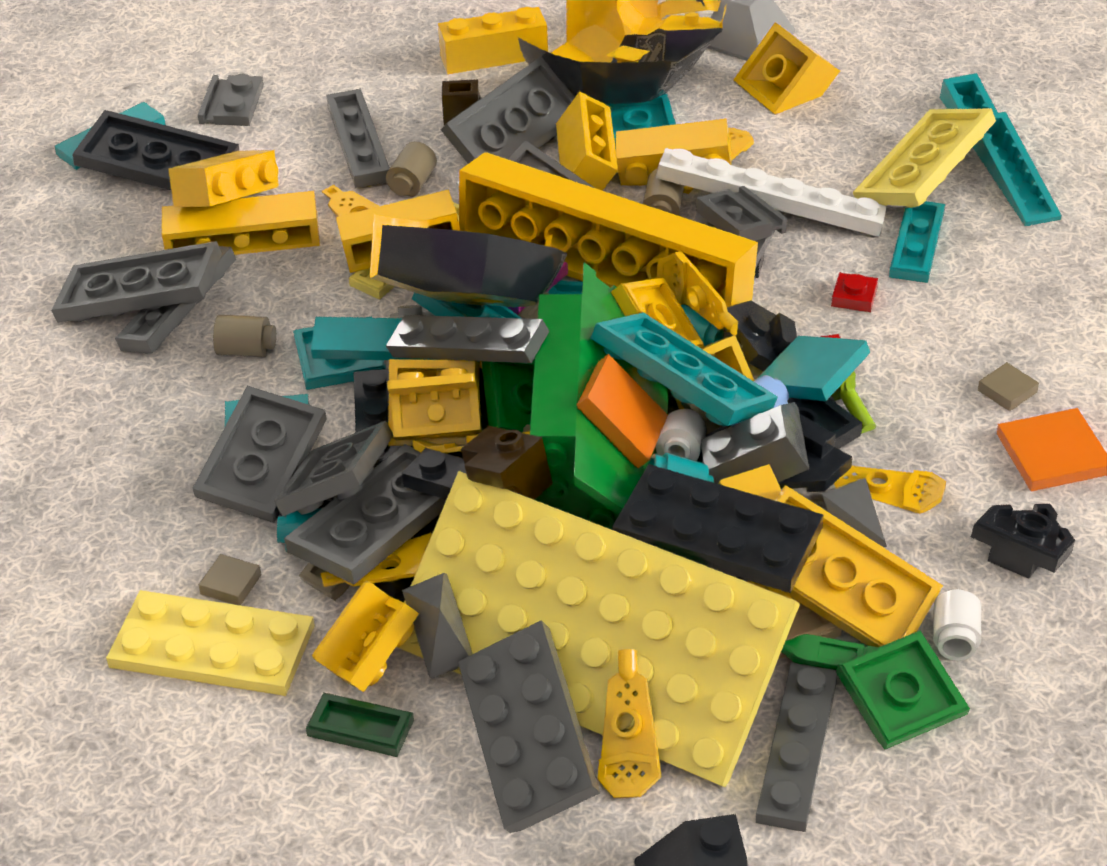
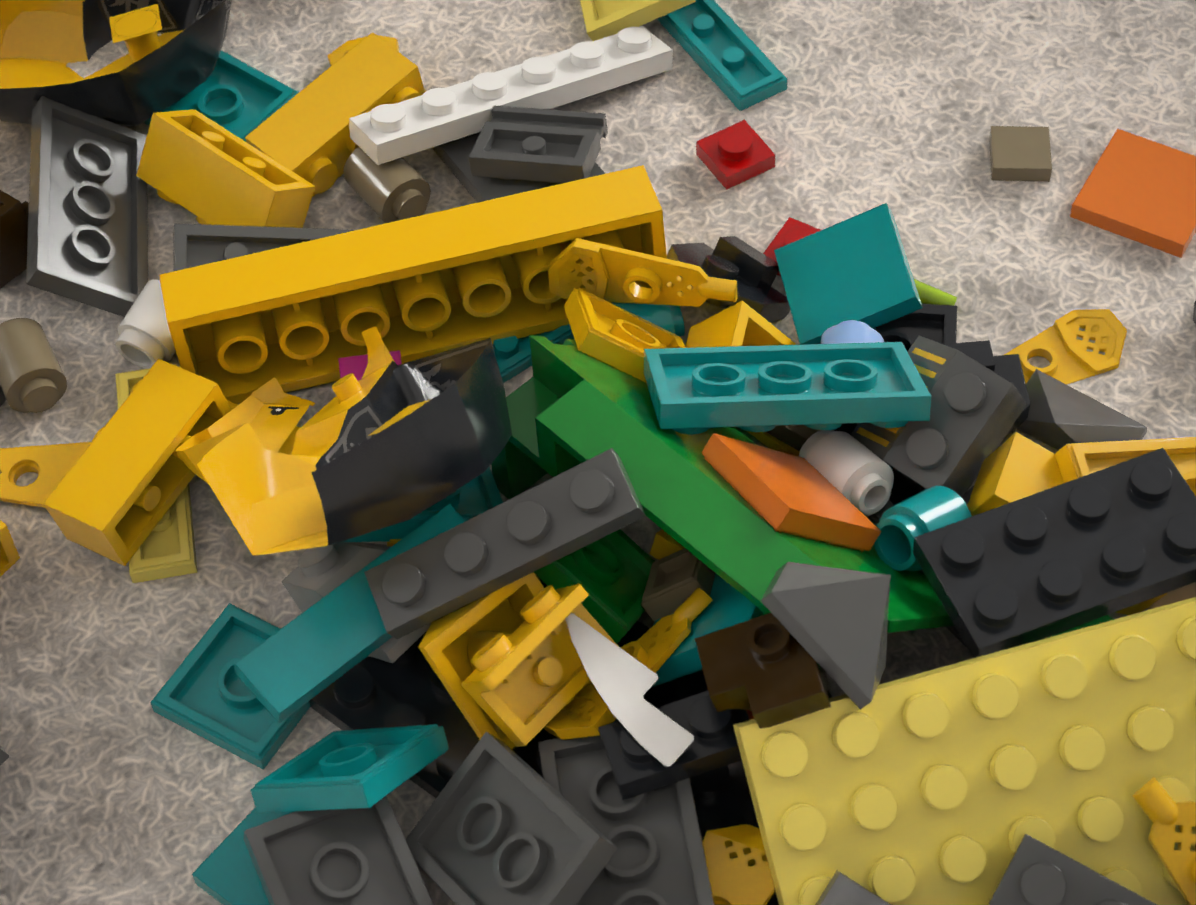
camera: 45 degrees left, 10 degrees up
(243, 335) = (101, 762): dark tan brick -> none
(321, 398) = (350, 769): none -> teal tile
(451, 429) = (622, 686): none -> white sticker
(544, 456) = (837, 620): none -> dark grey slope

